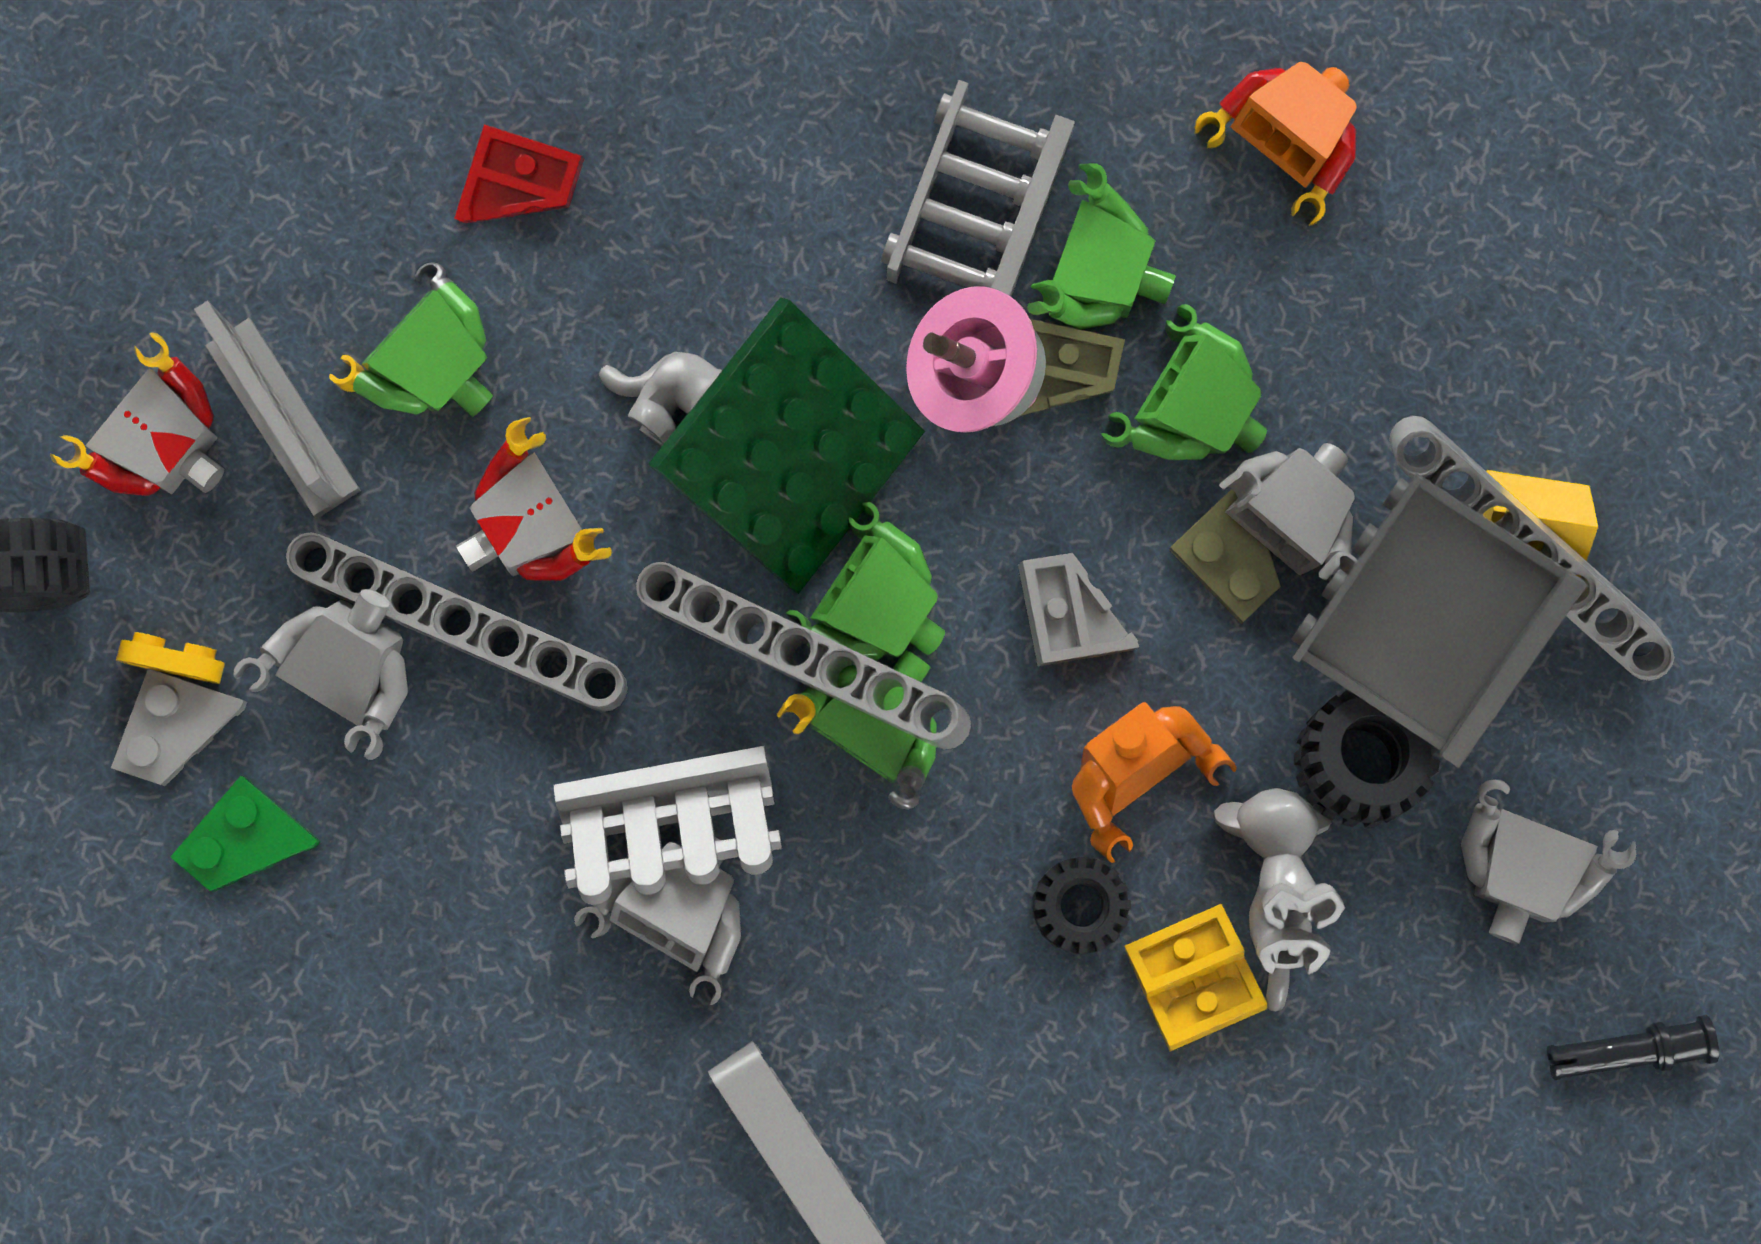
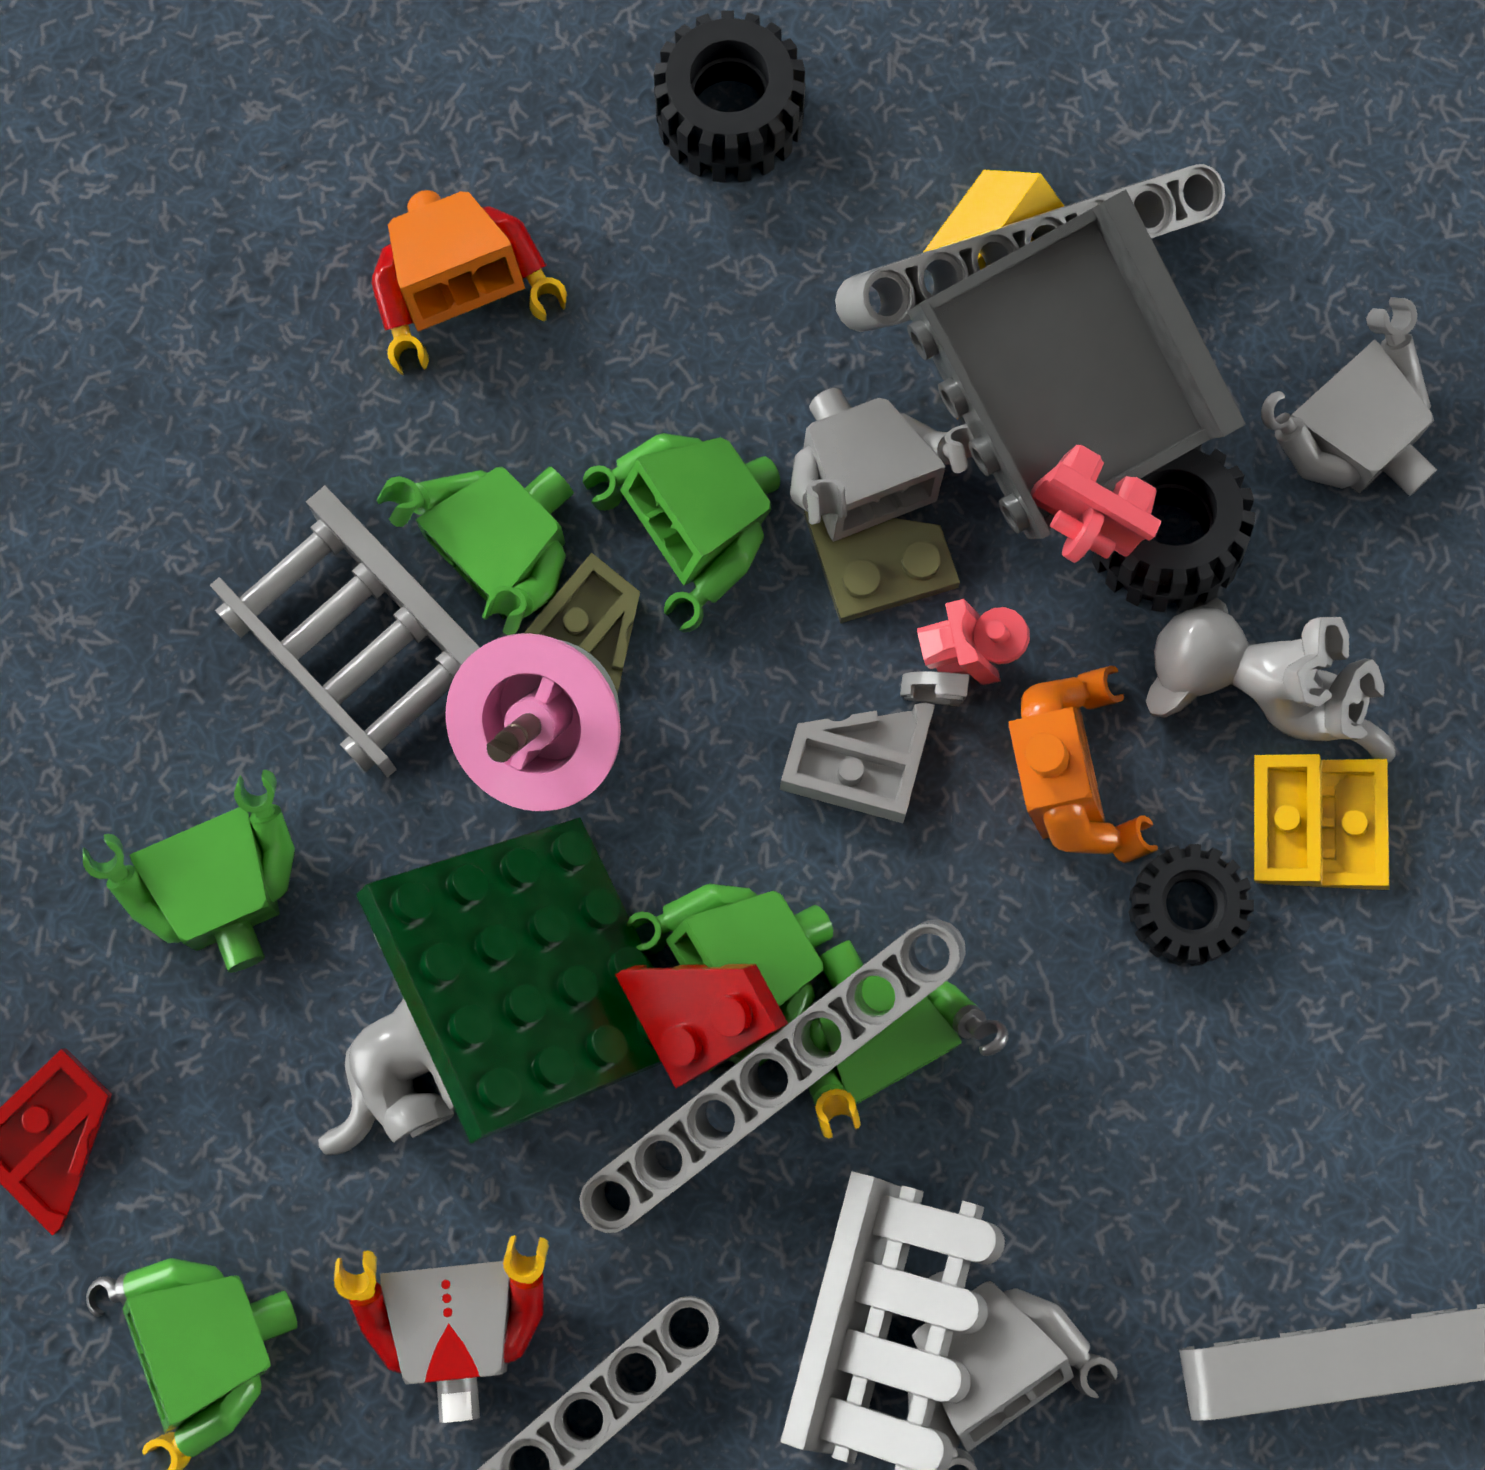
camera: 60 degrees left, 5 degrees down
(749, 192) = (209, 878): none -> bright green torso
(820, 582) = (701, 1013): none -> red wing
(1152, 641) = (950, 690): none -> light grey tile
(1197, 650) = (972, 640): none -> coral hips
(1327, 686) = (1091, 513): none -> coral hips
(1565, 229) = (729, 52): none -> black tyre

